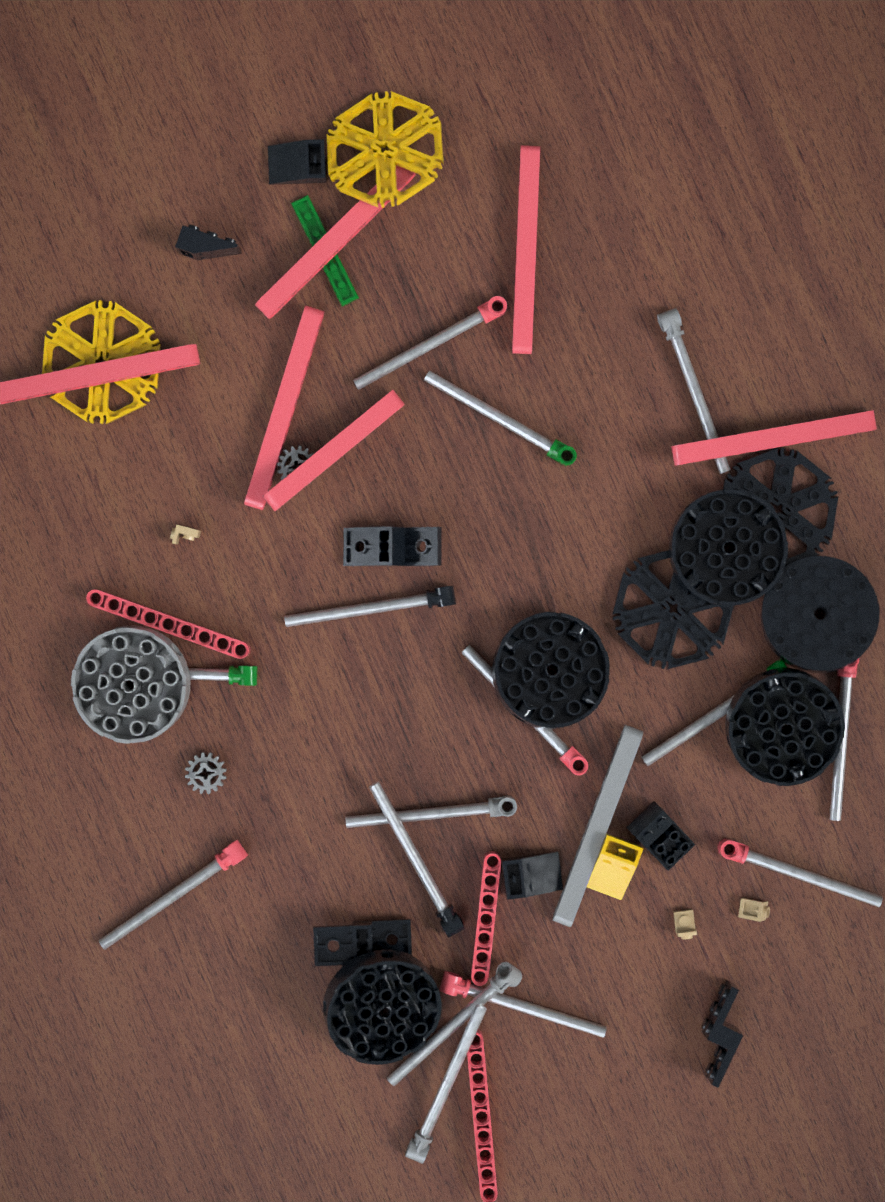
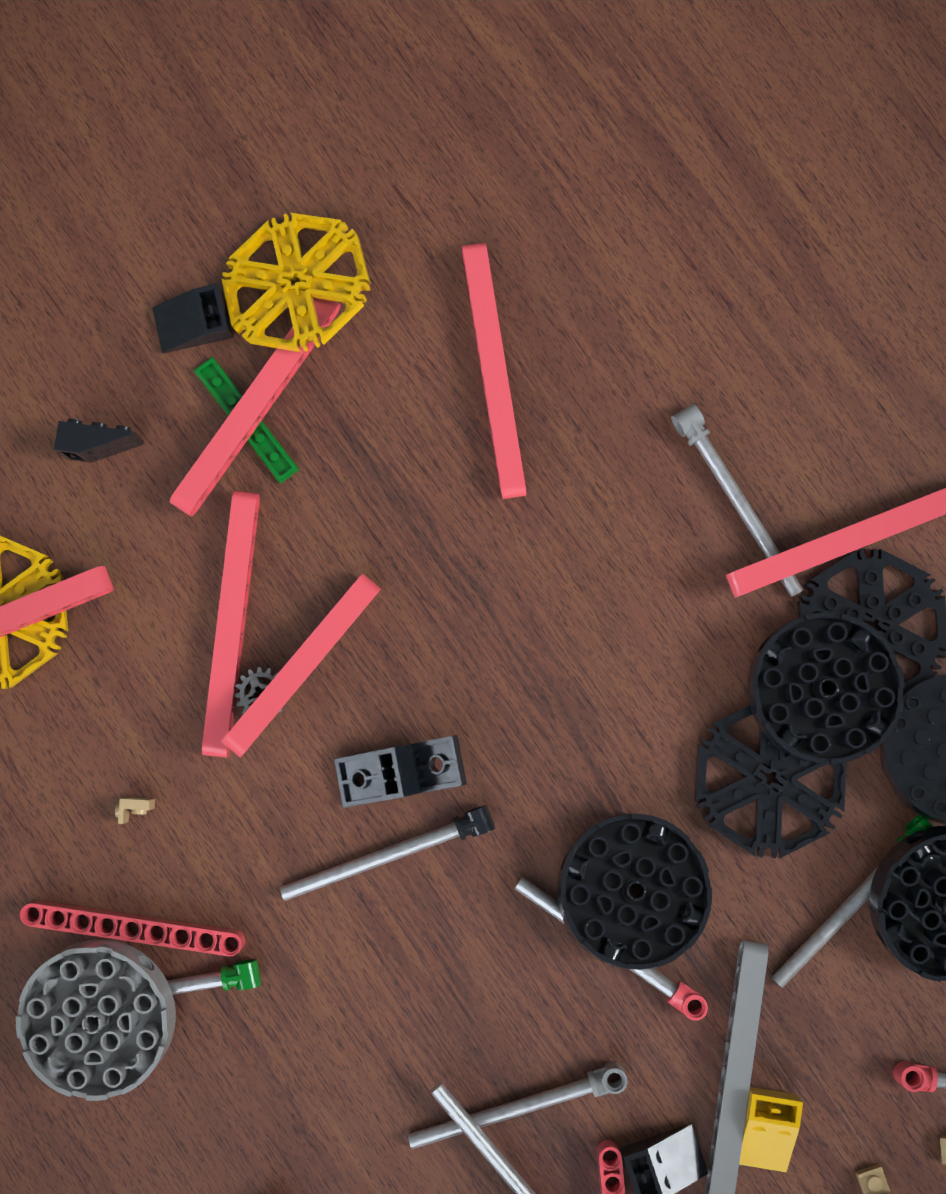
camera: 15 degrees left, 5 degrees down
(207, 782) = (213, 1103): light grey gear -> none
(484, 313) = (459, 457): flat silver piece -> none
(554, 448) = (579, 607): flat silver piece -> none
(661, 835) = (818, 1076): black slope -> none

